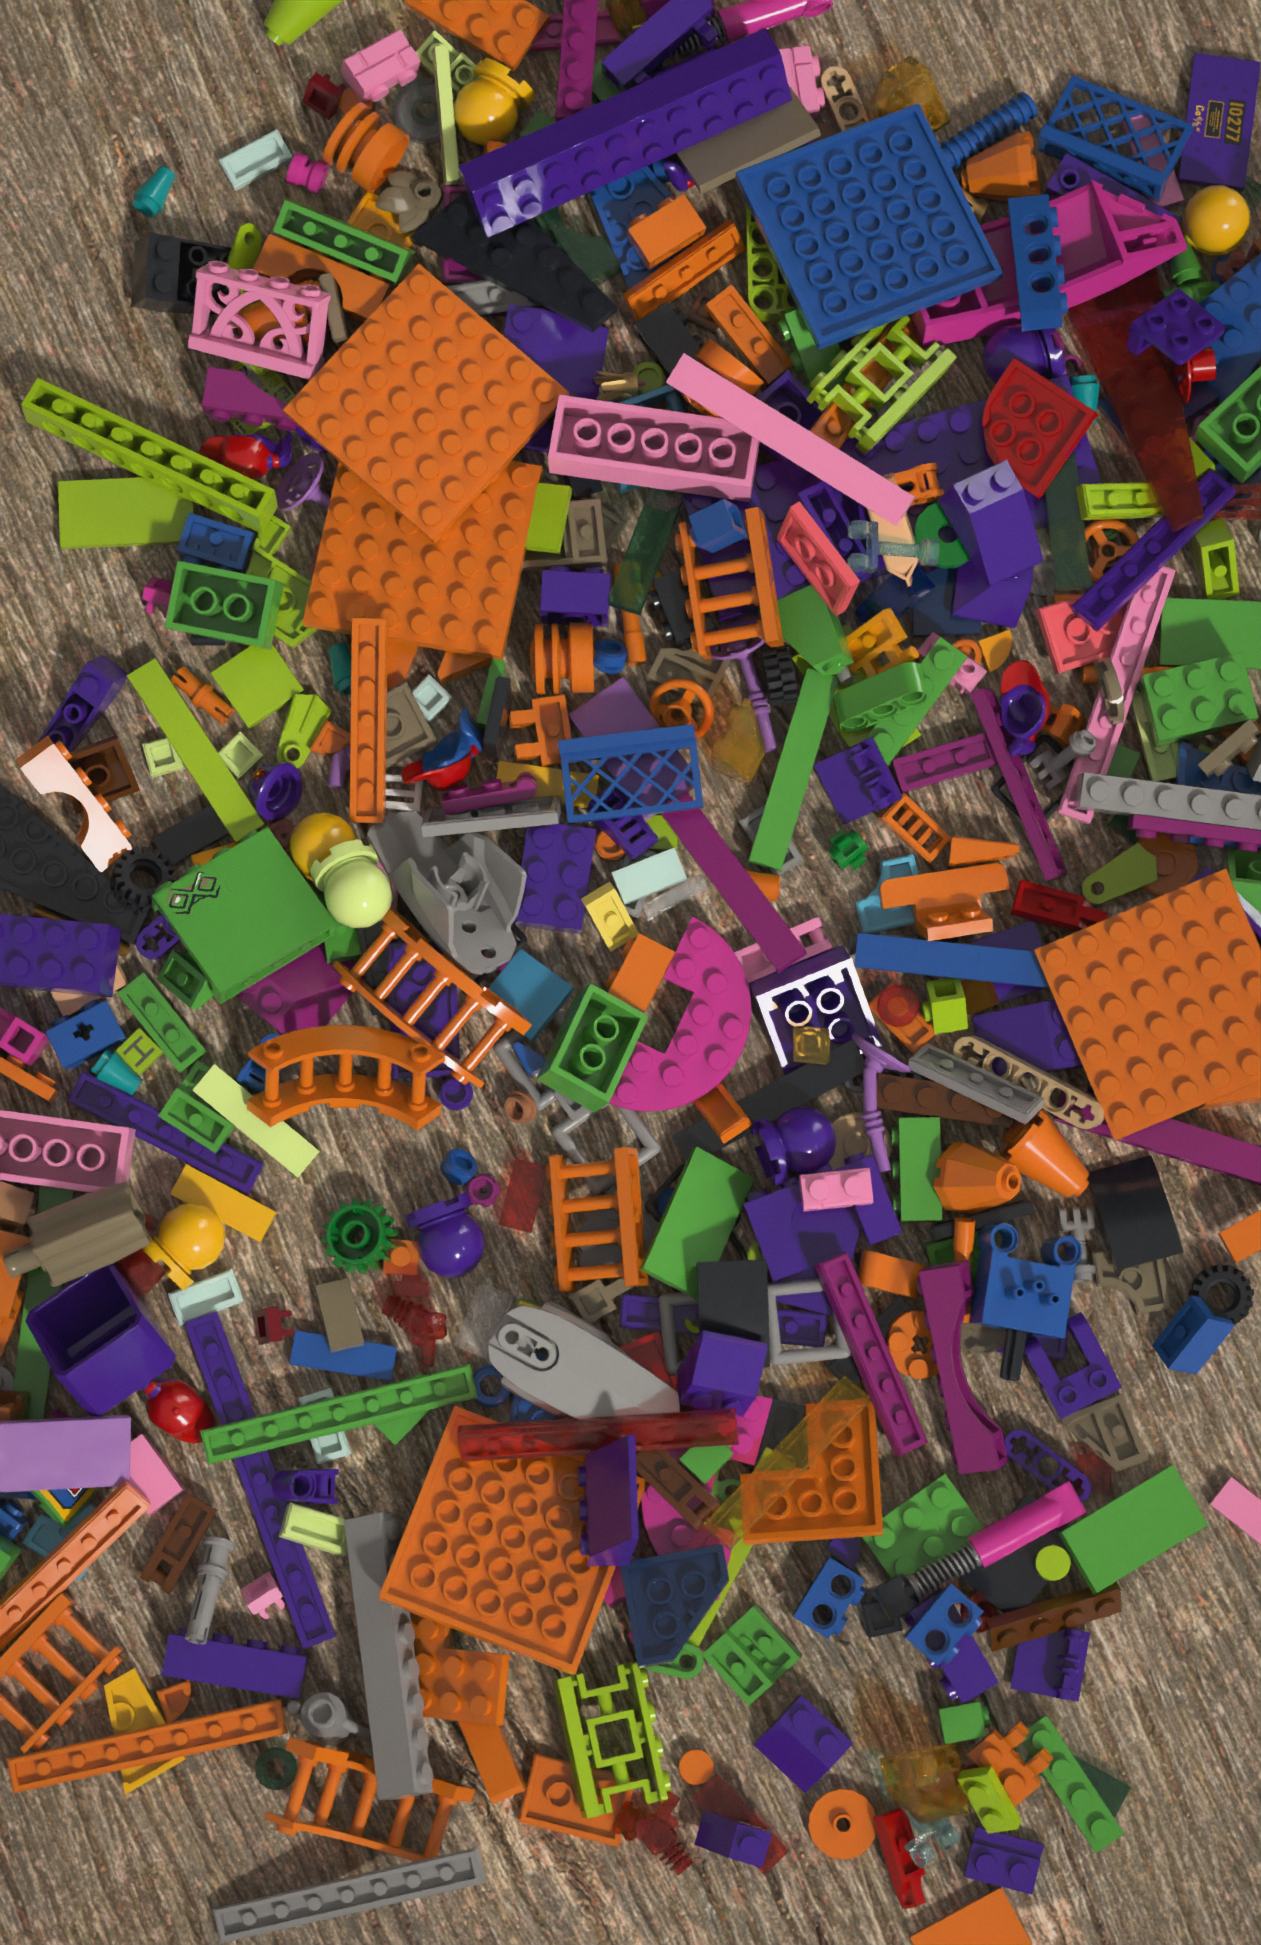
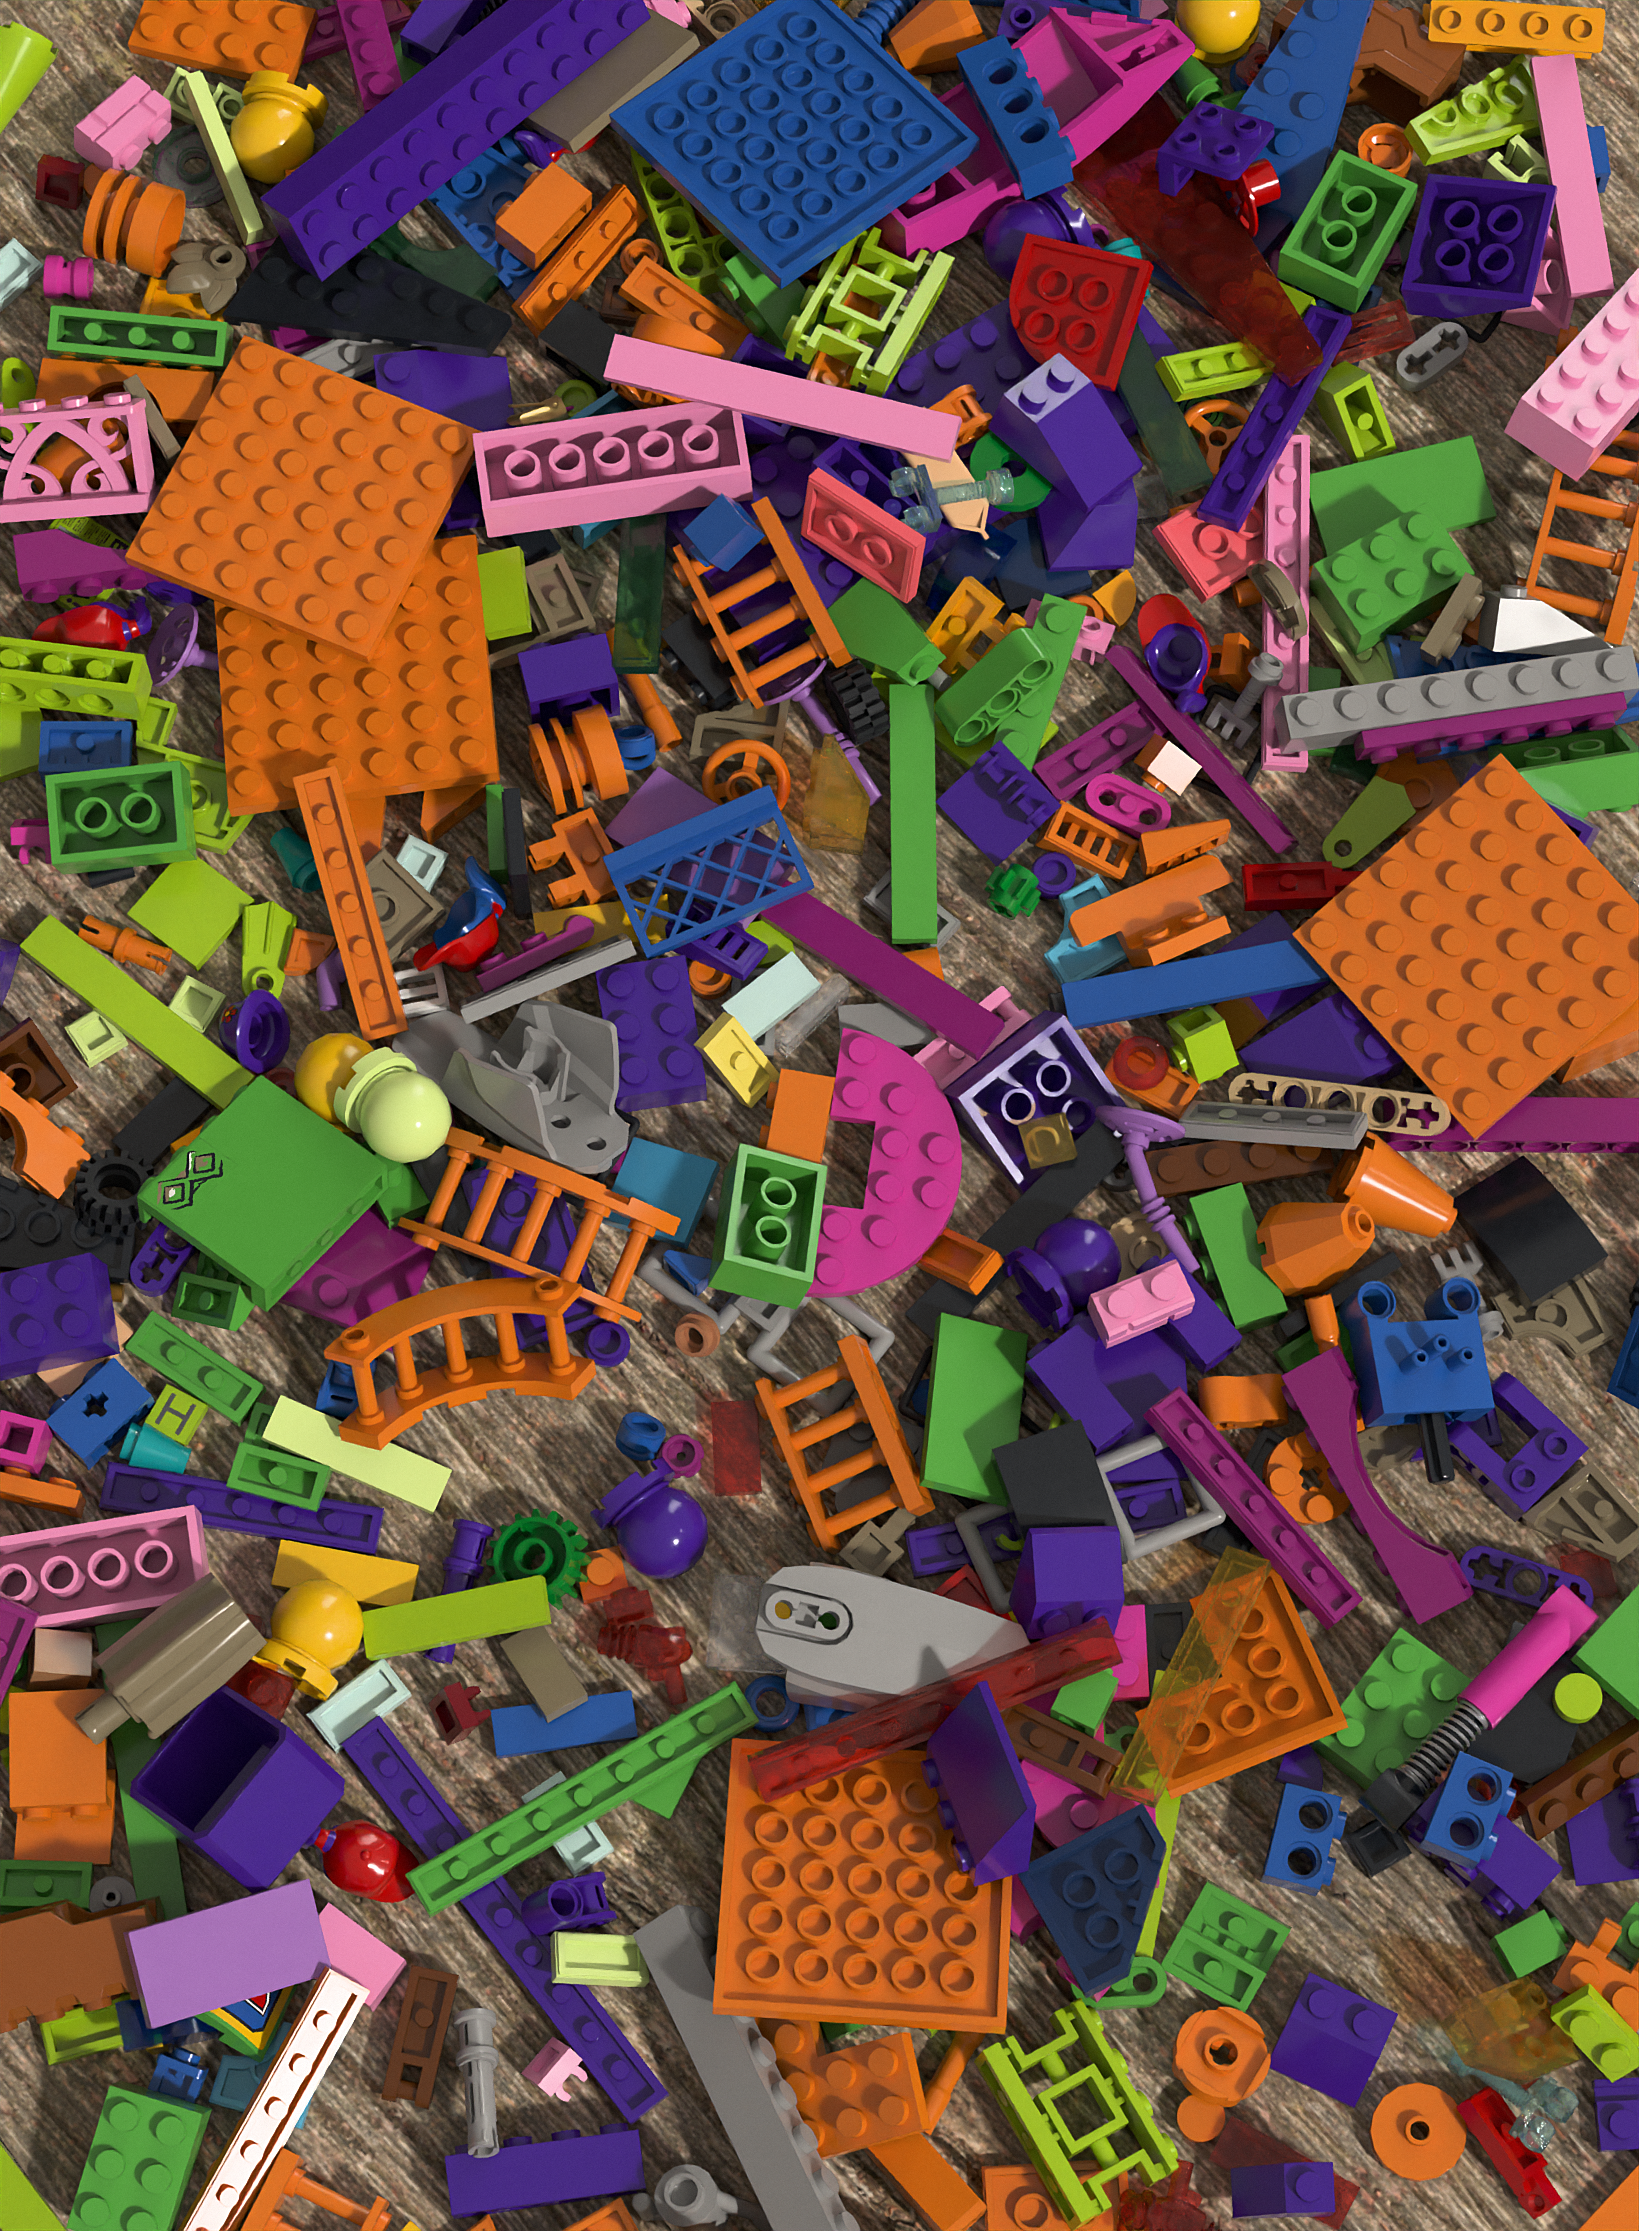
camera: 20 degrees left, 10 degrees down
(289, 1260) = (456, 1617): none -> lime tile
(304, 1225) = (461, 1570): none -> dark purple pin
(521, 1692) = (939, 2088): none -> orange piece
(703, 1730) = (1224, 2082): none -> orange plate
(721, 919) = (884, 1022): none -> light grey tile
(733, 273) = (637, 249): none -> orange plate
(882, 844) = (1055, 874): none -> dark purple tile
(954, 808) = (1129, 805): none -> dark pink plate
(988, 789) = (1166, 765): none -> plate

